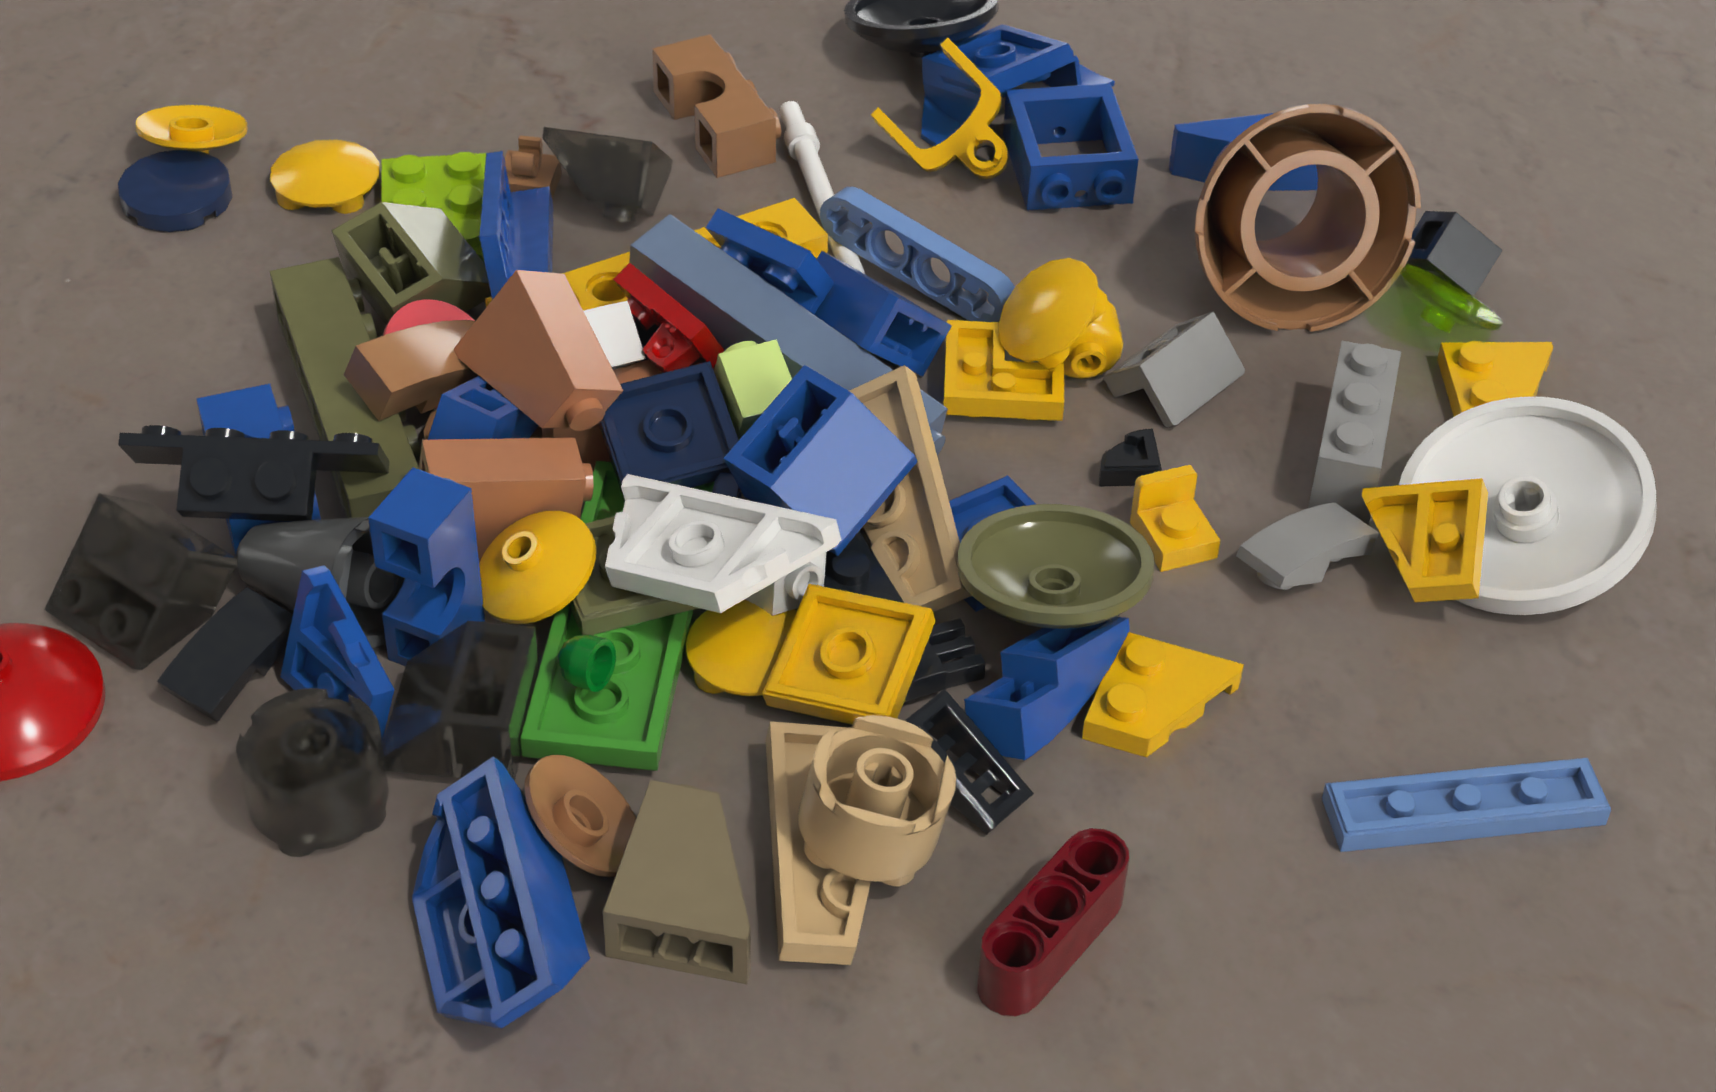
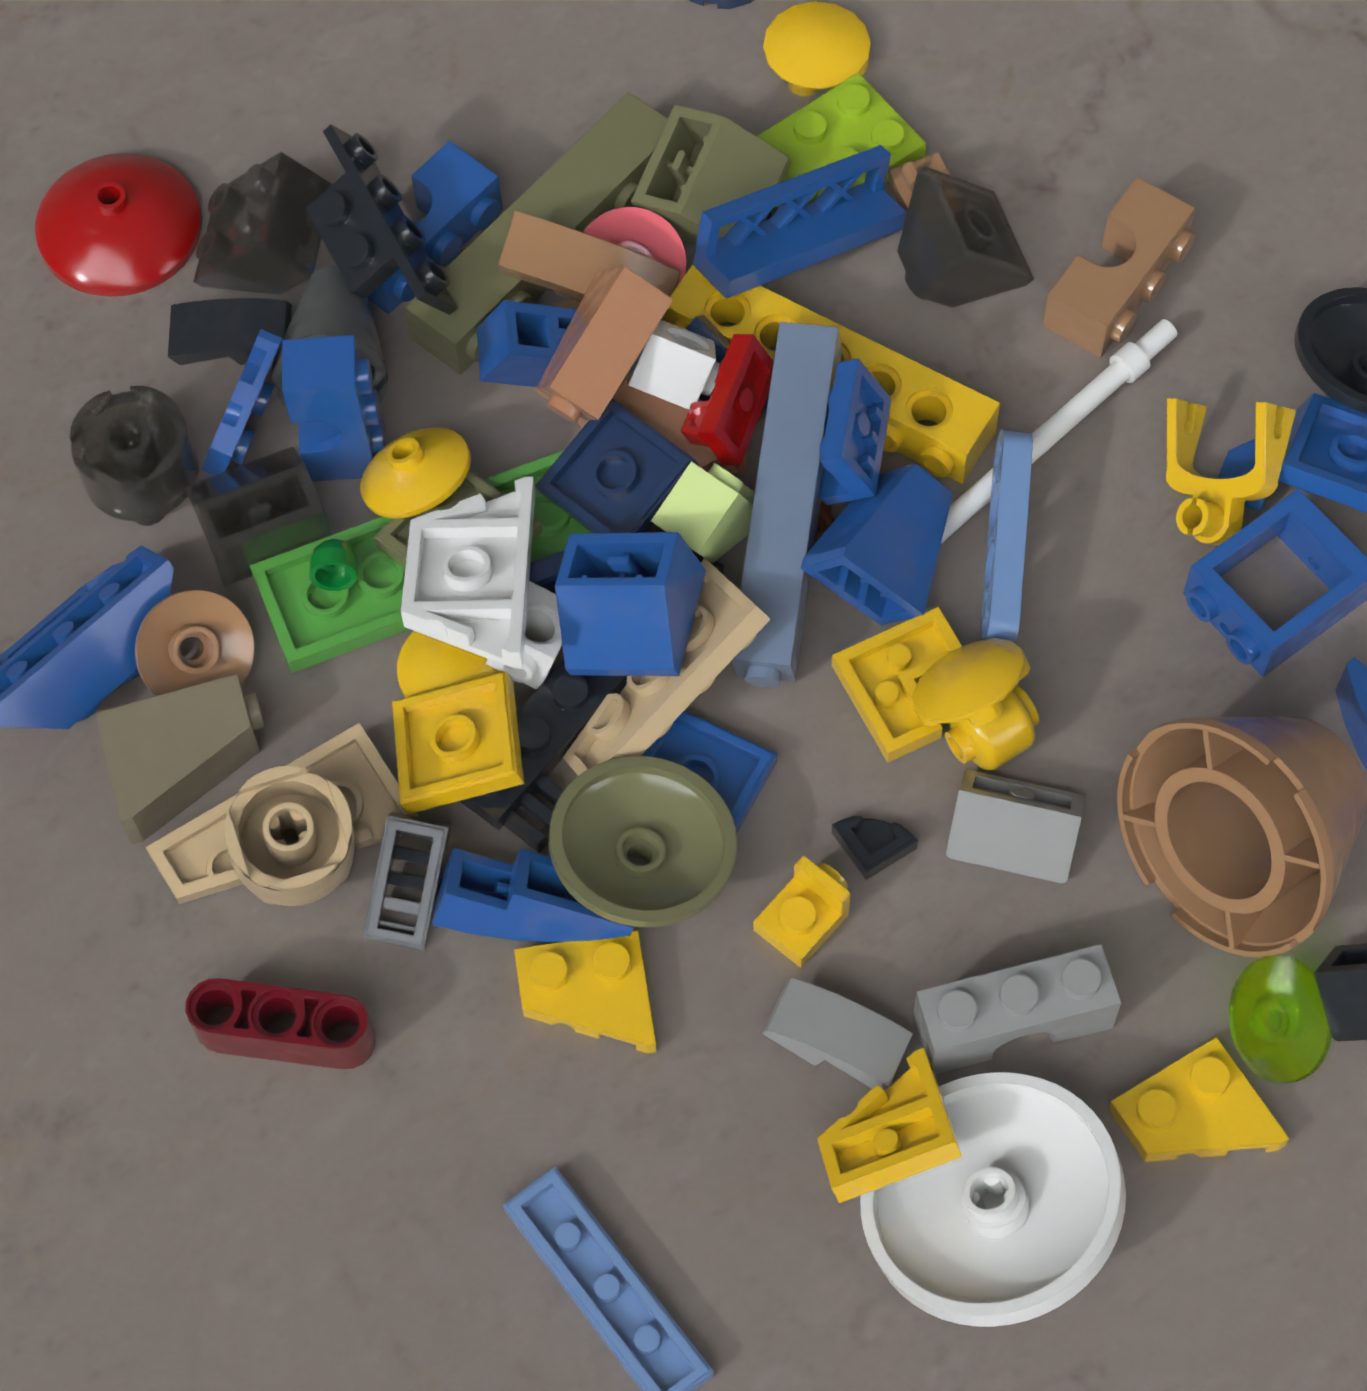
camera: 65 degrees right, 20 degrees up
(511, 478) = (458, 390): nougat slope -> none

